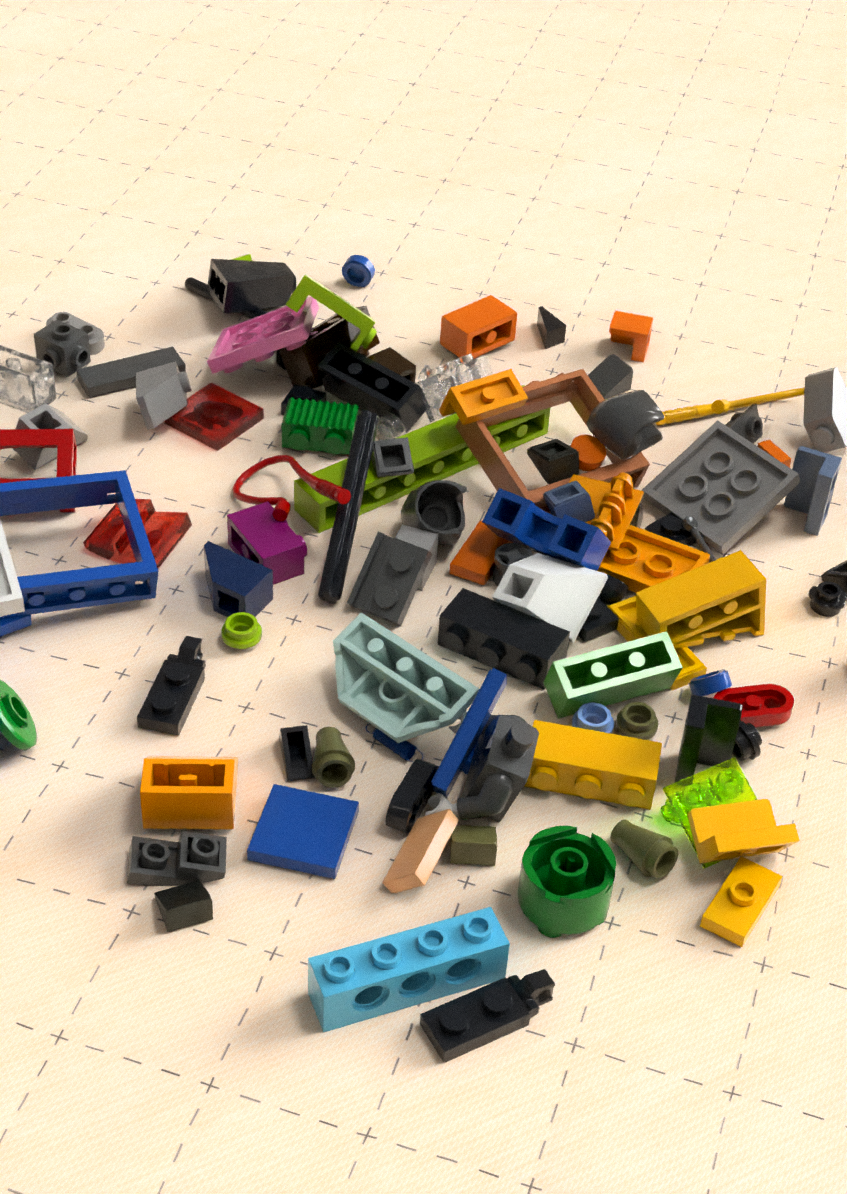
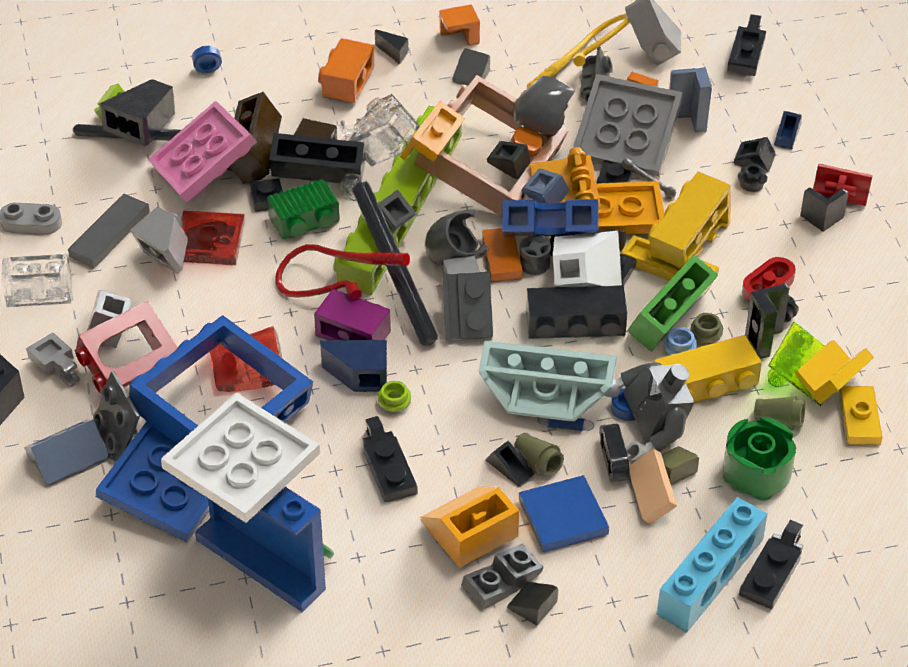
camera: 30 degrees left, 5 degrees up
(63, 347) = (44, 234): dark grey brick -> none
(311, 287) = (233, 105): lime panel -> none
(469, 732) = (628, 389): blue tile -> none
(710, 683) = (732, 277): blue tile -> none

